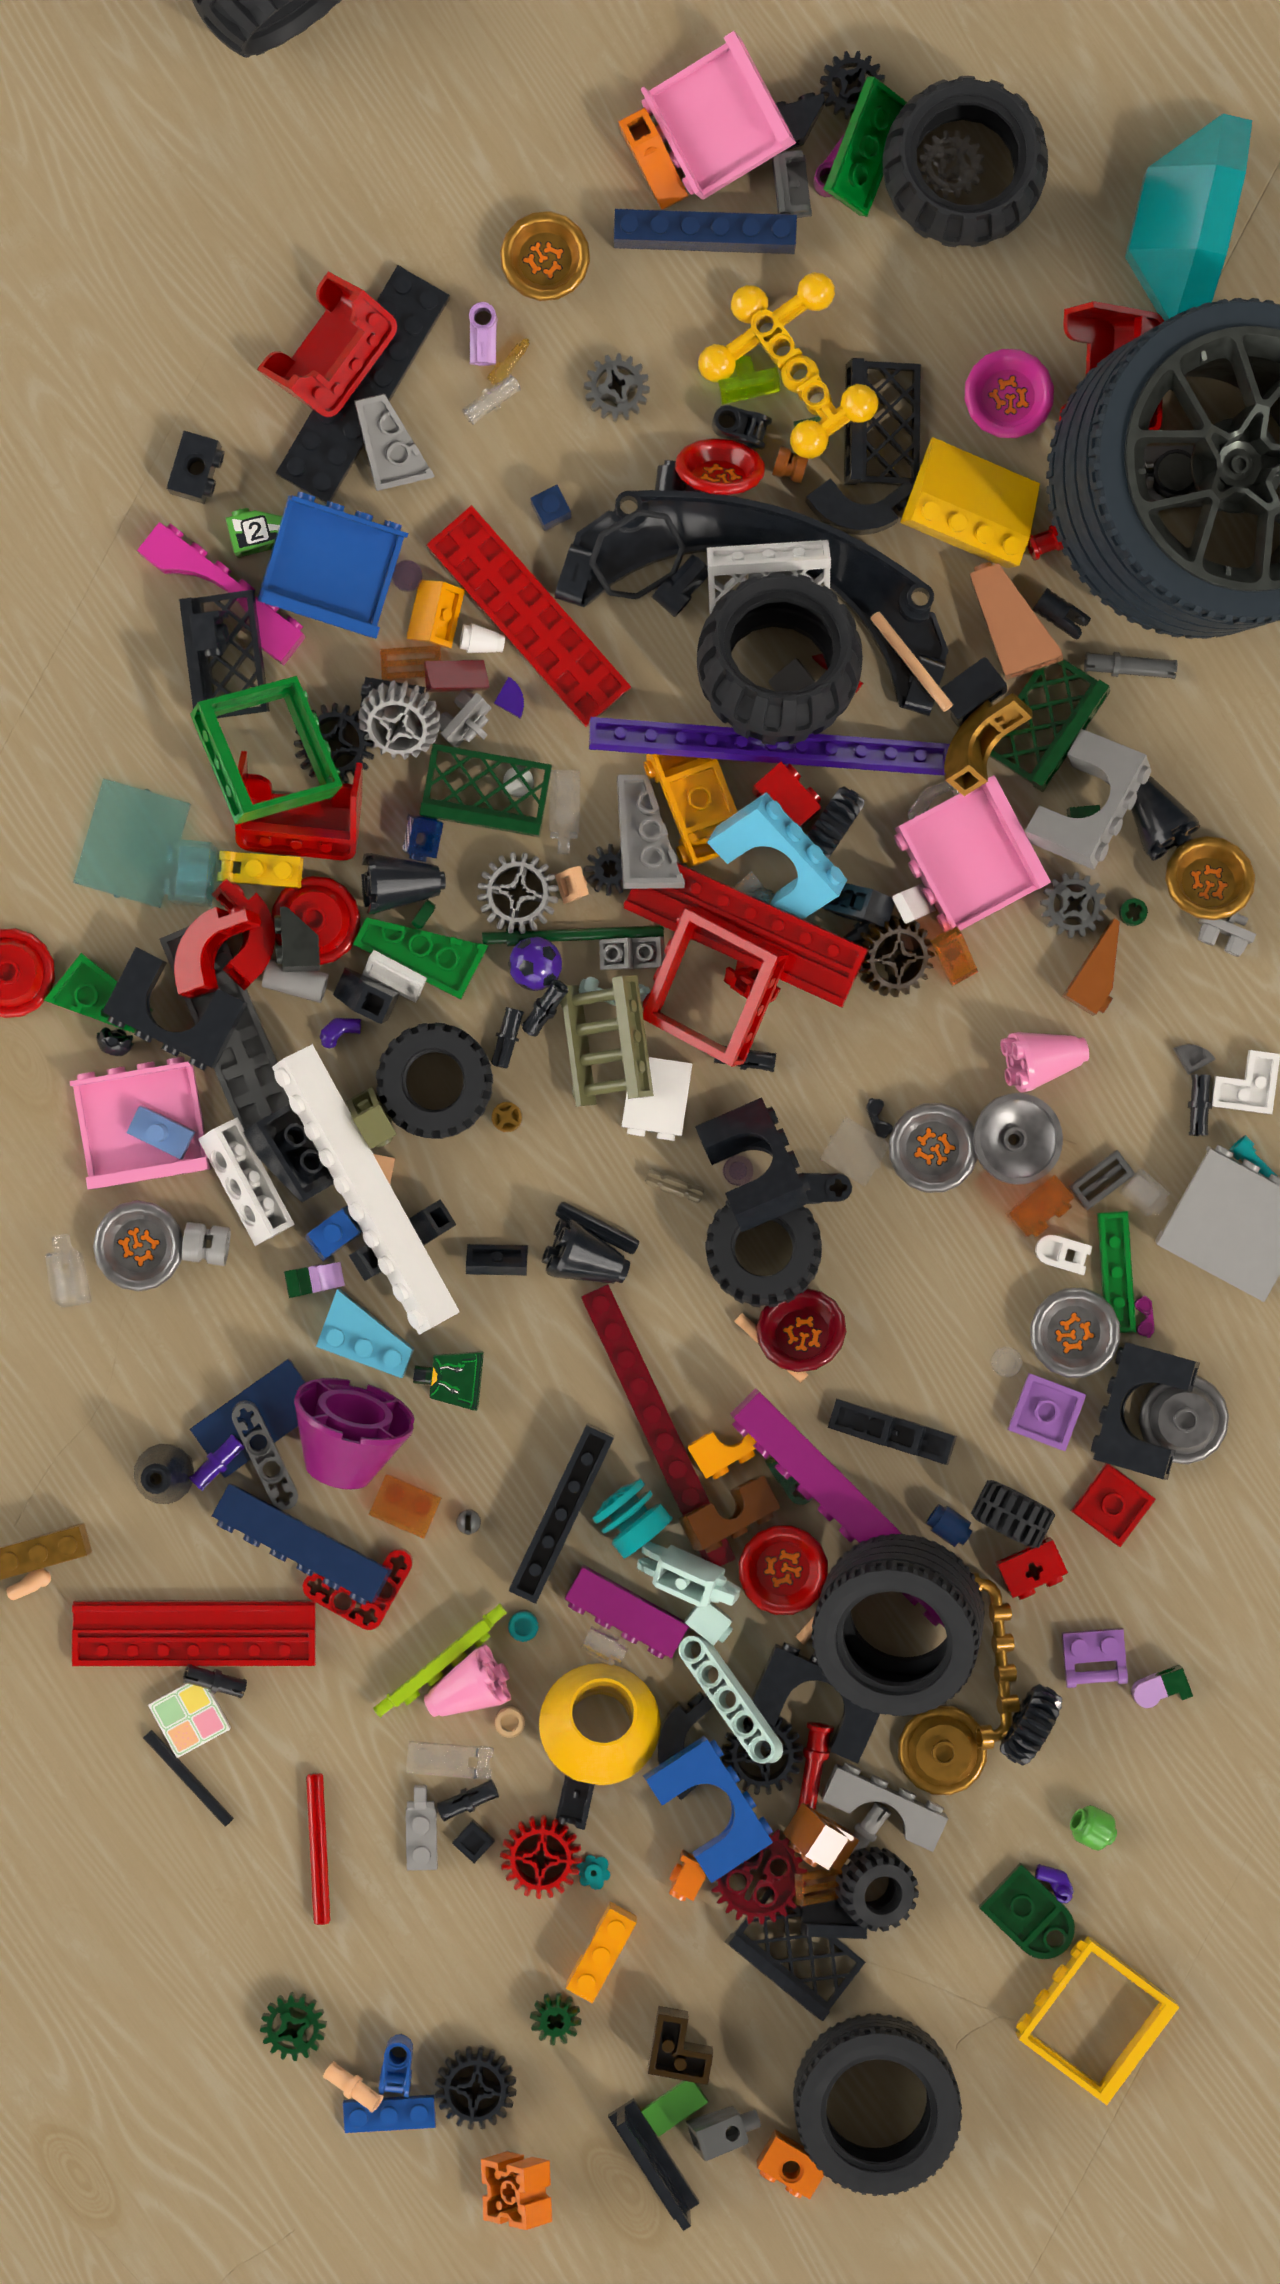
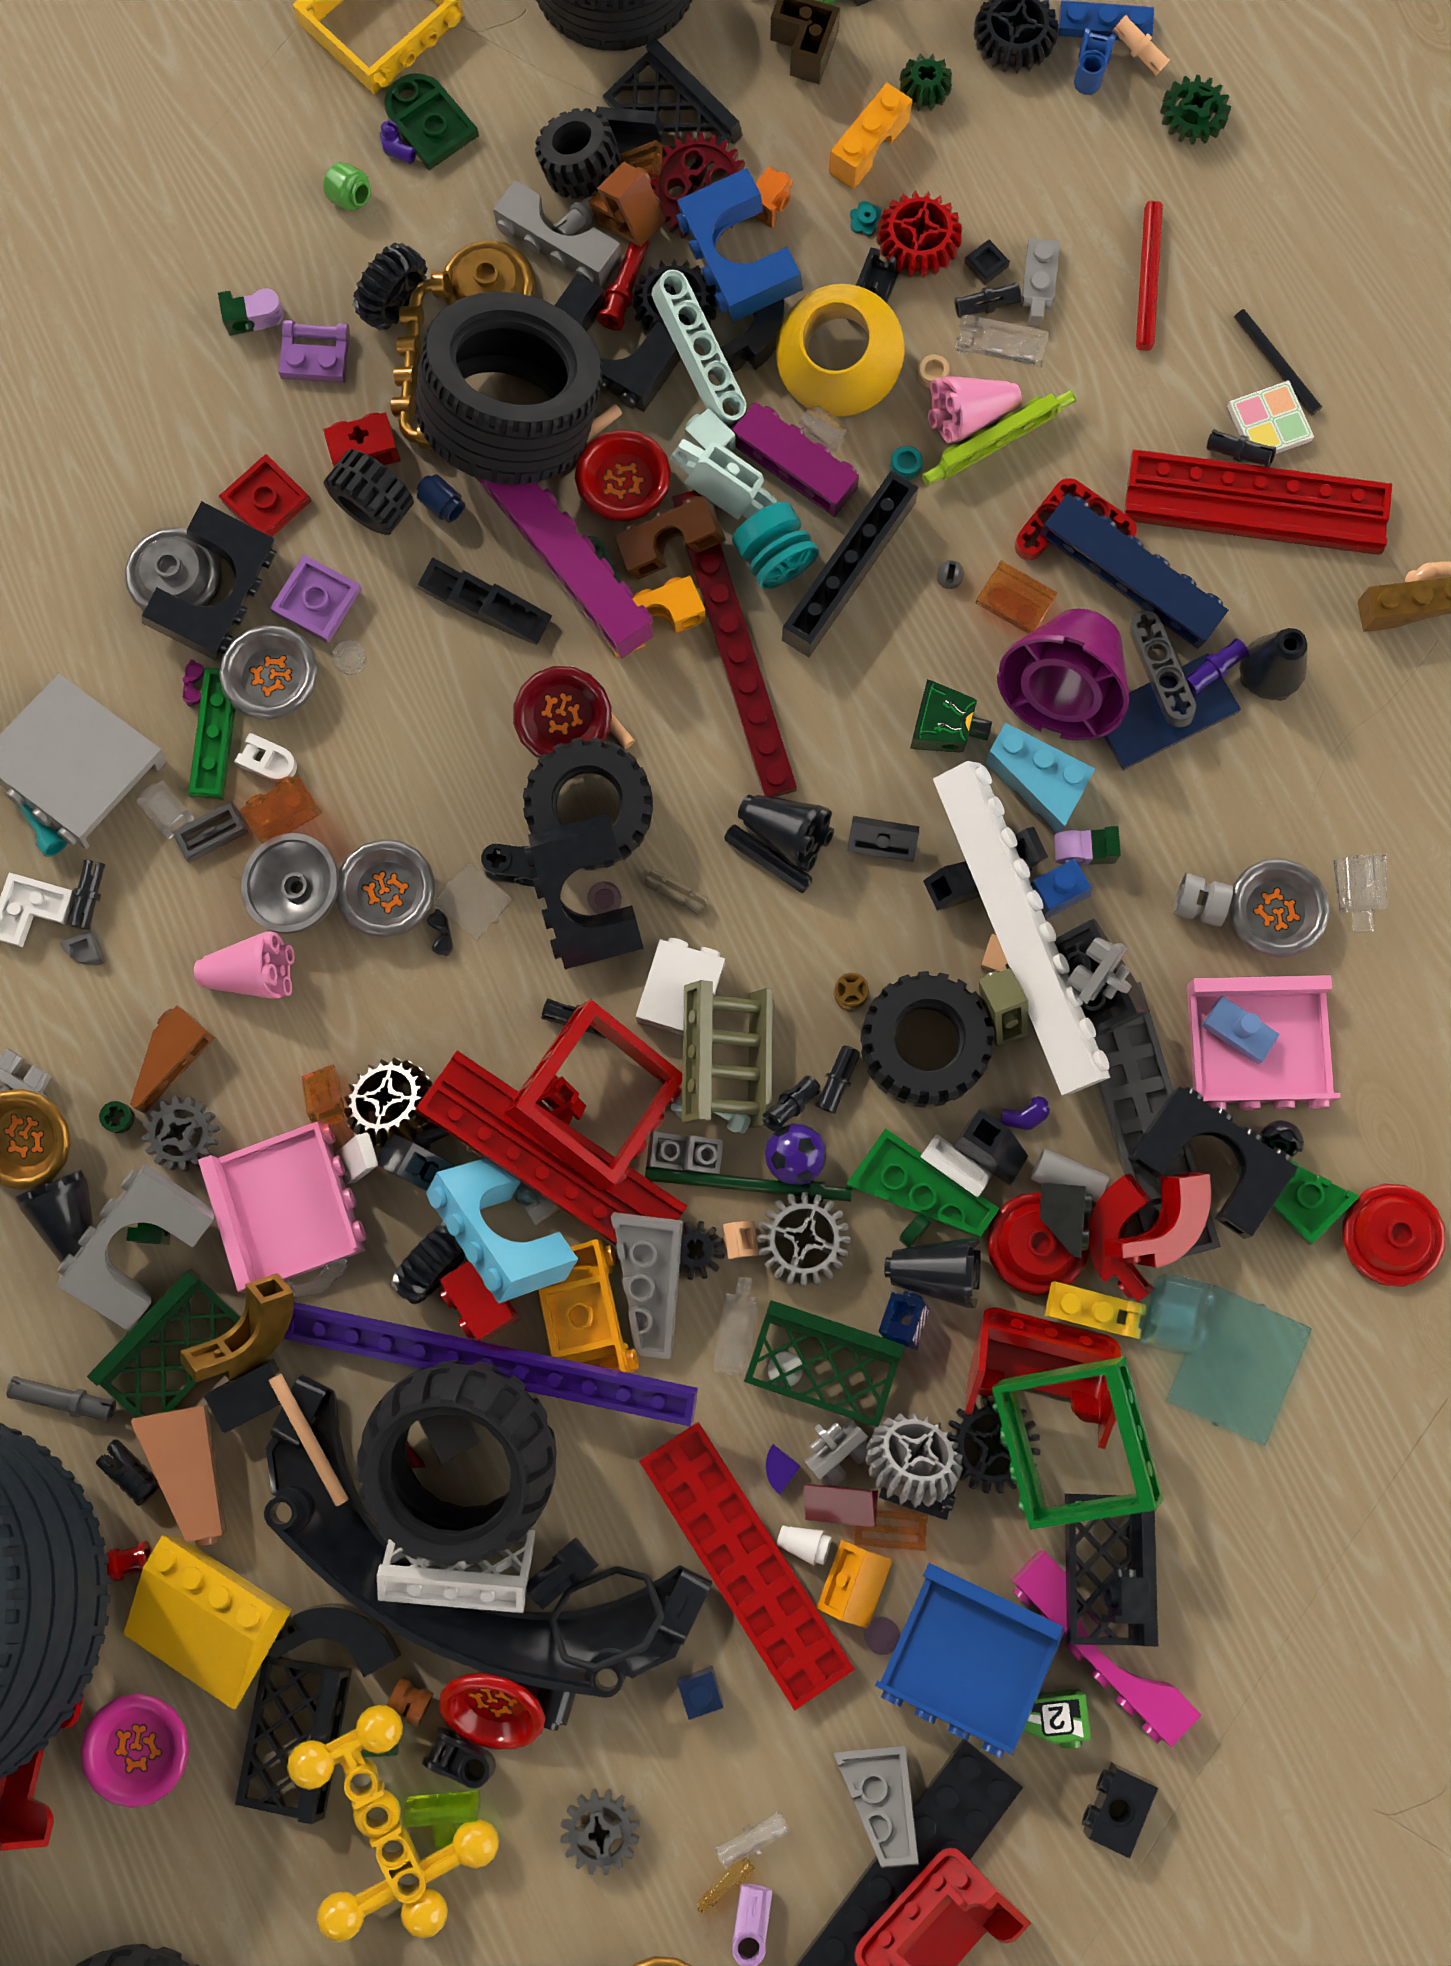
camera: 170 degrees left, 10 degrees down
(246, 1181) = (1151, 959): white brick -> none
(288, 1165) = (1091, 983): none -> light grey hips

